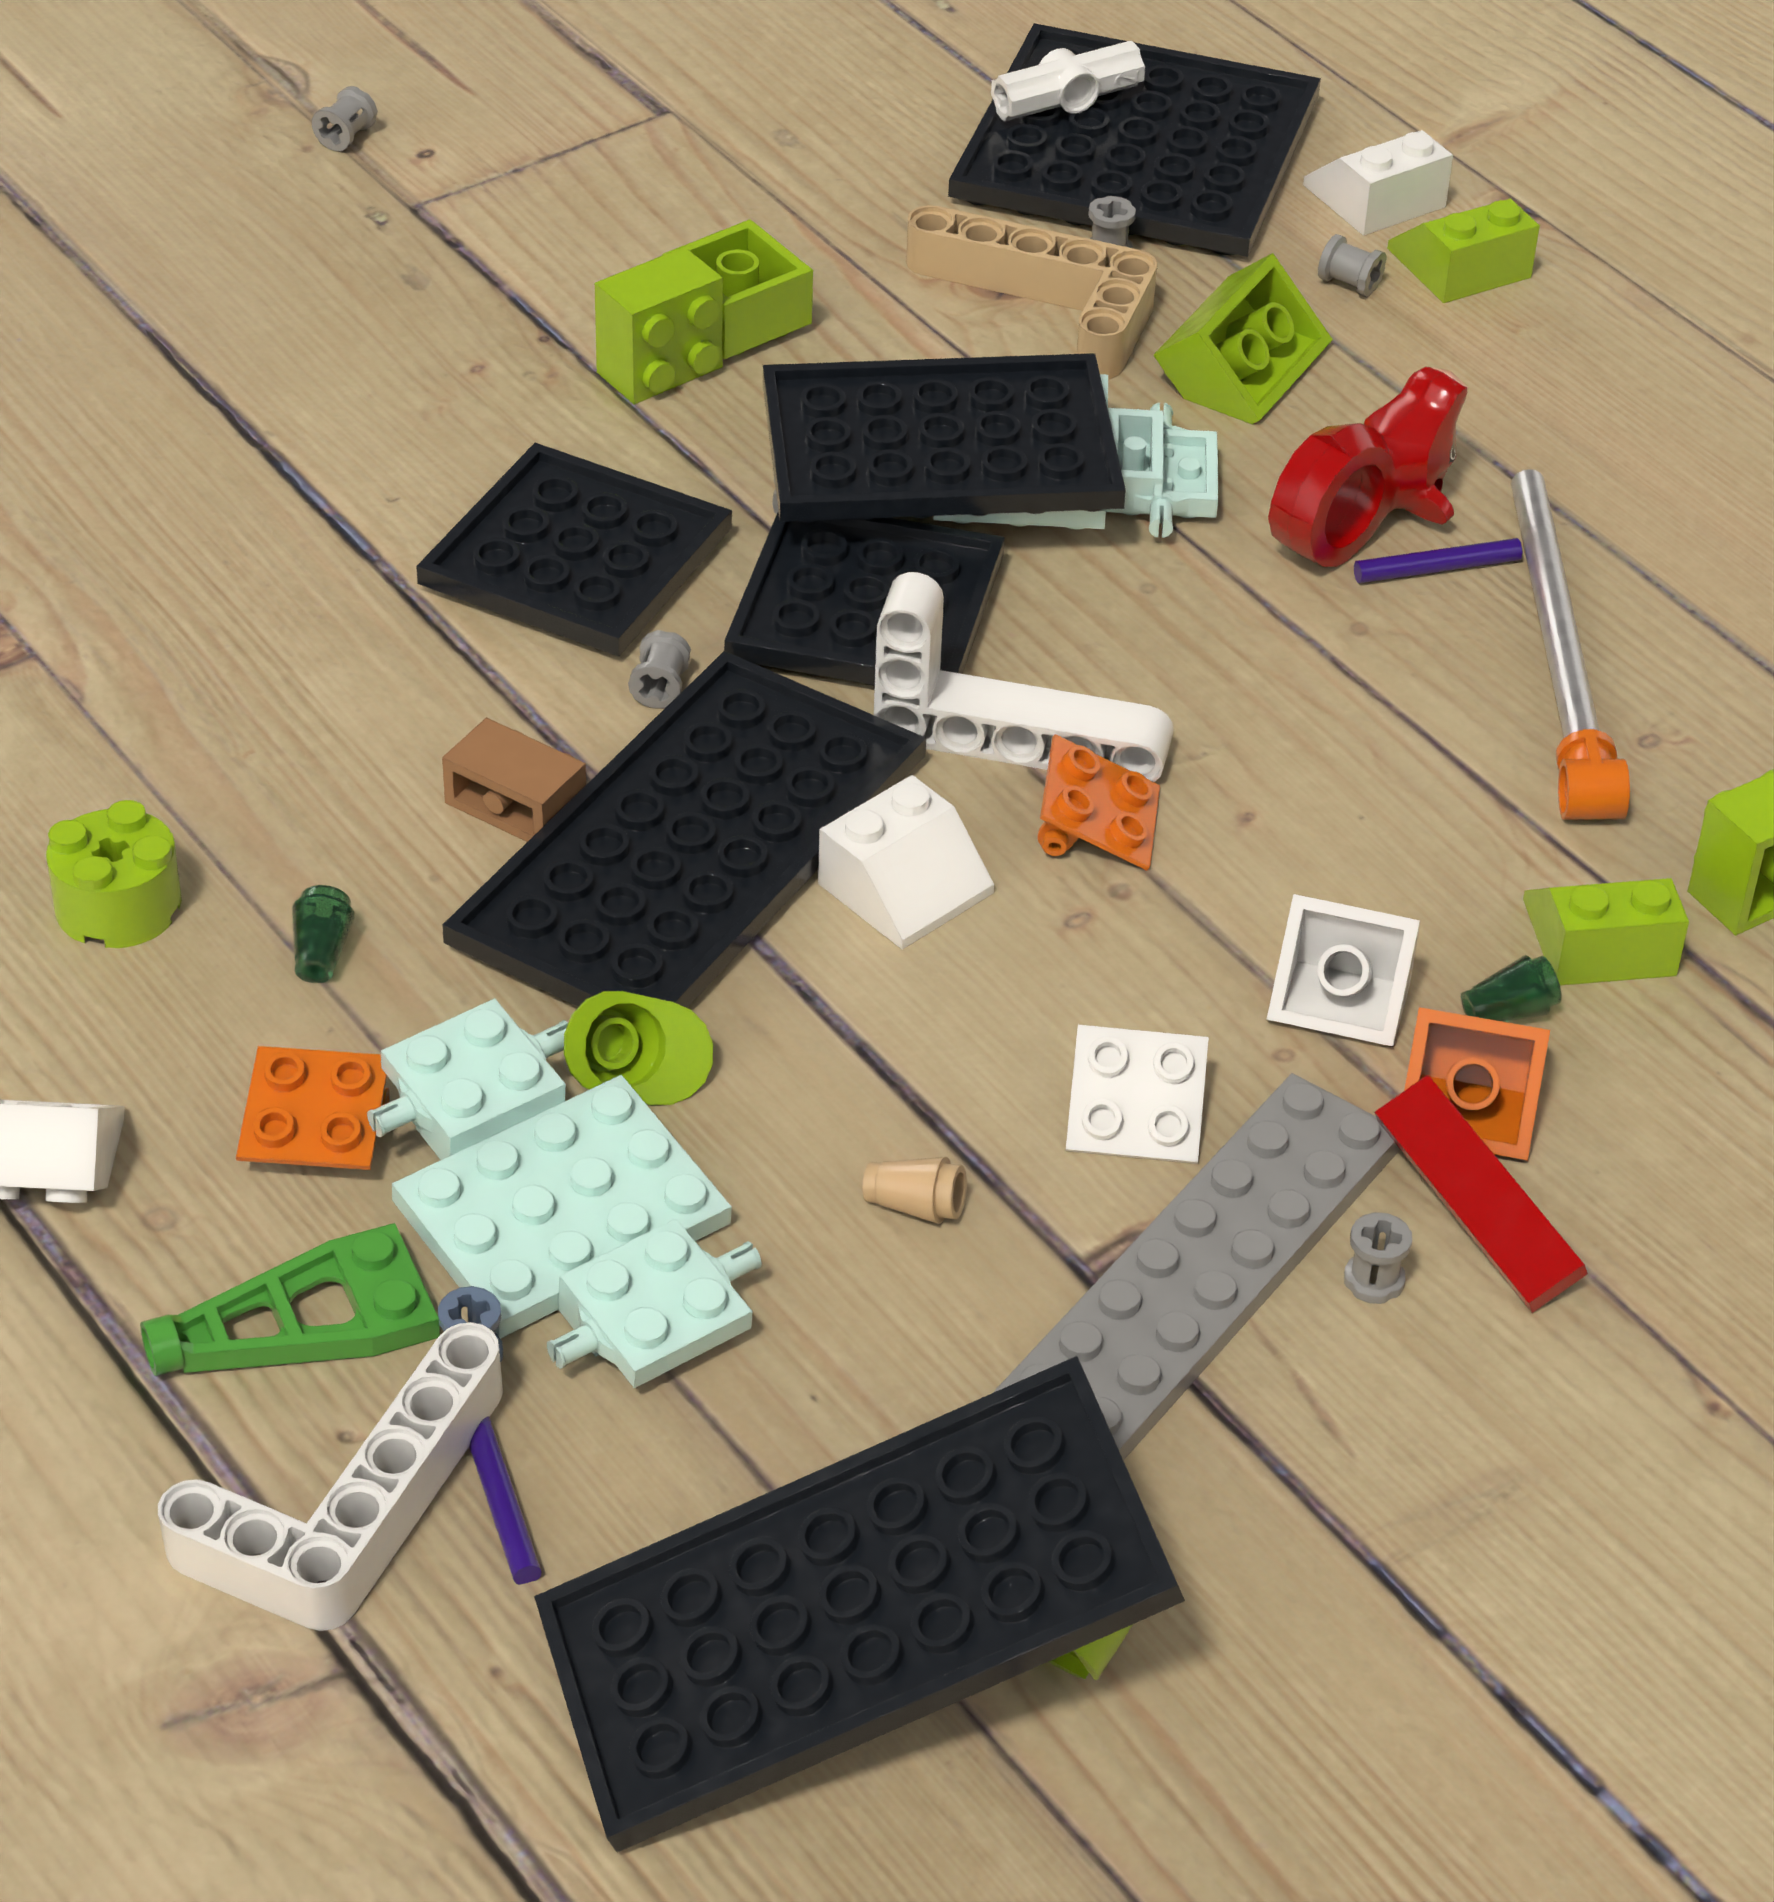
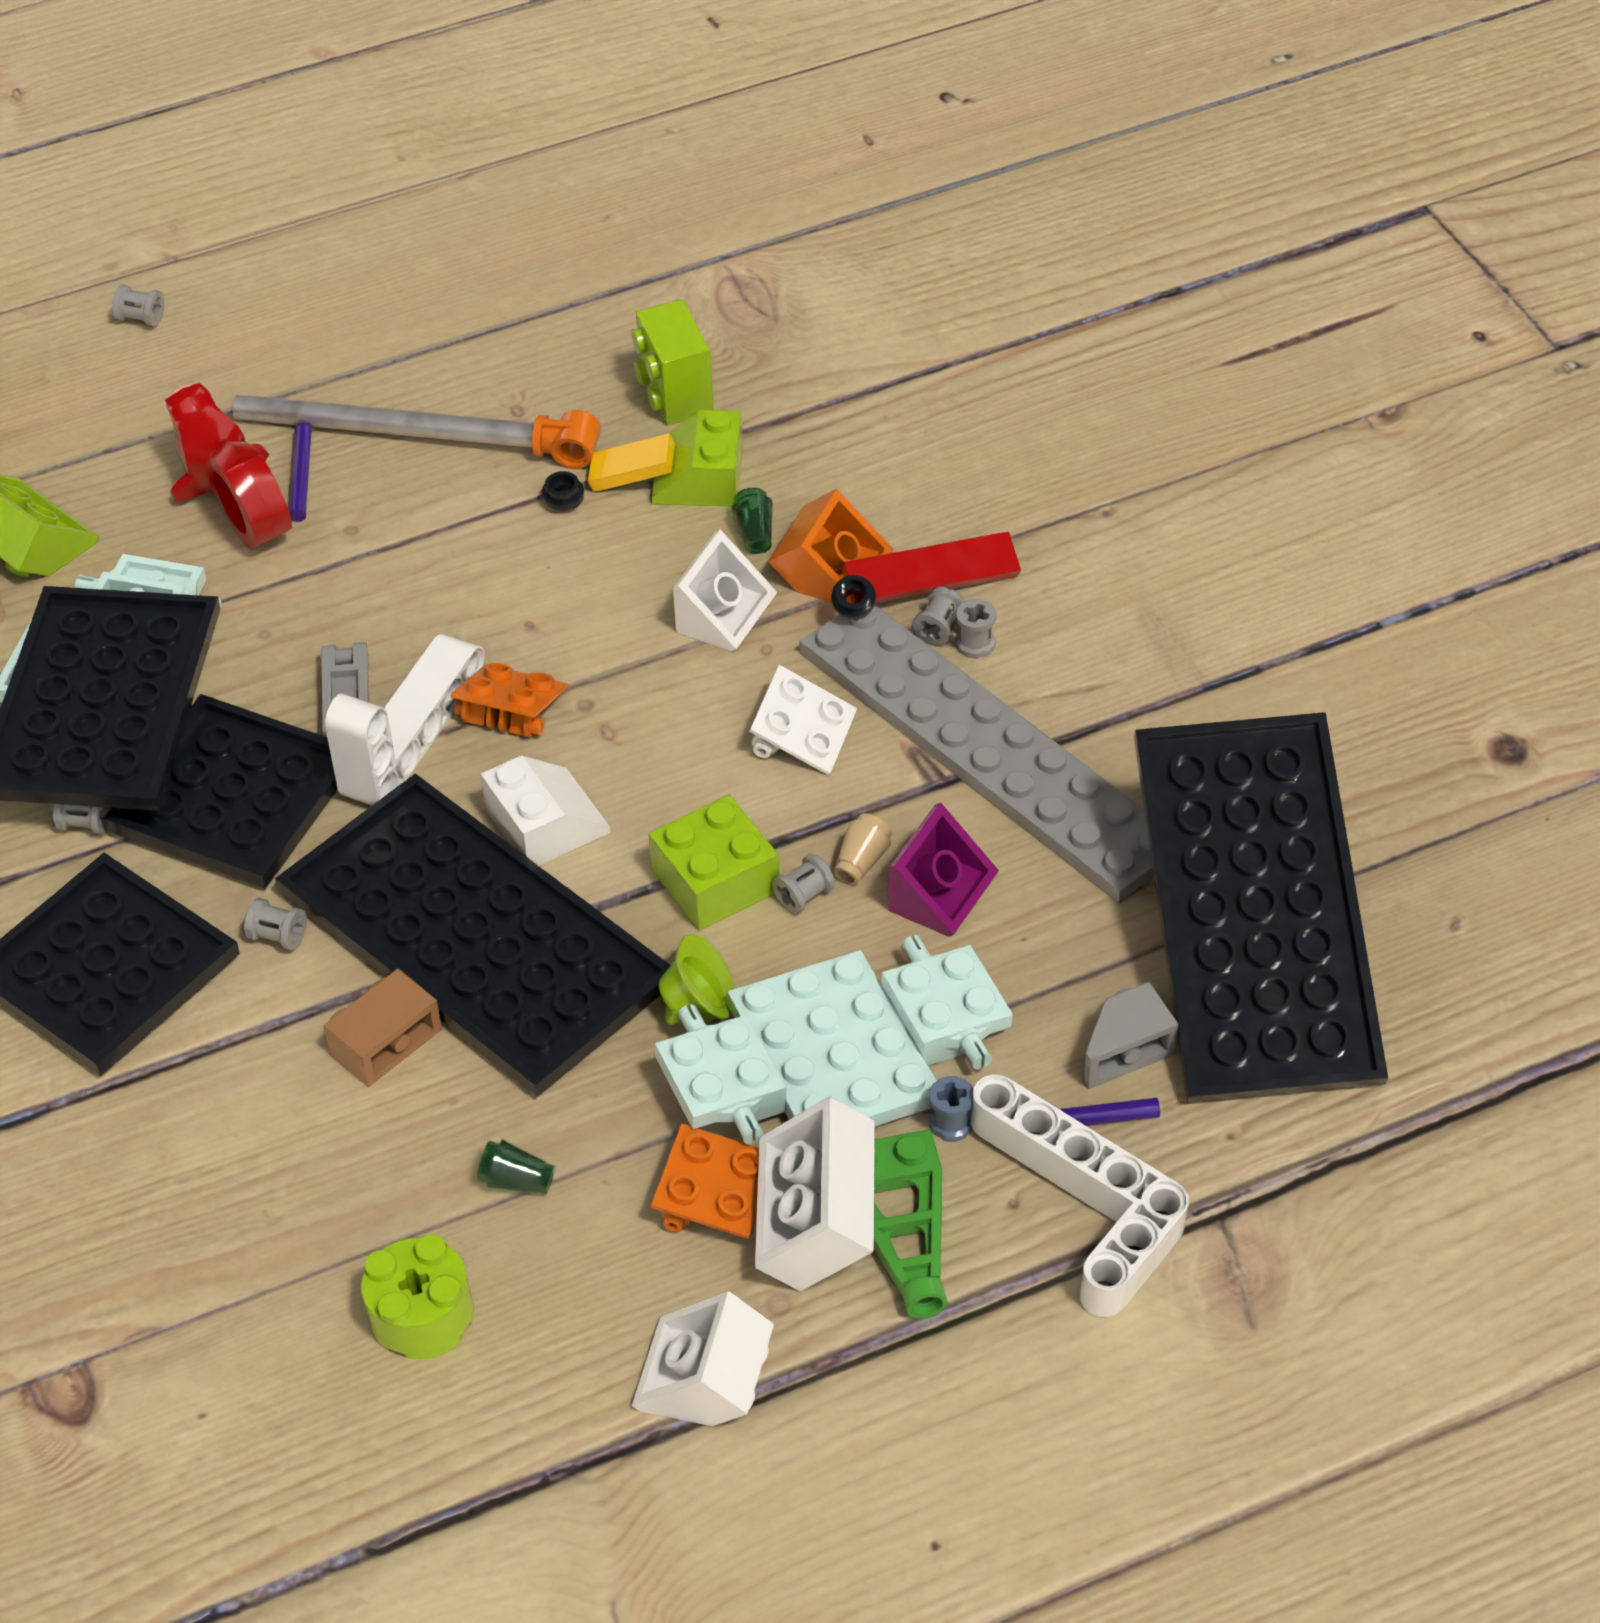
camera: 75 degrees left, 5 degrees up
(277, 1191) = (815, 1194): none -> white brick
(626, 1499) = (1129, 1035): none -> light grey slope
(837, 1134) = (803, 883): none -> light grey bush
(846, 1035) = (714, 861): none -> lime brick
(884, 1266) = (939, 874): none -> magenta slope
(1063, 658) = (345, 673): none -> light grey plate
(1366, 1095) = (851, 585): none -> black plate
(1412, 1207) = (937, 616): none -> light grey bush
(1495, 797) = (562, 491): none -> black plate
(1570, 850) = (631, 462): none -> yellow tile
(1674, 356) = (124, 302): none -> light grey bush

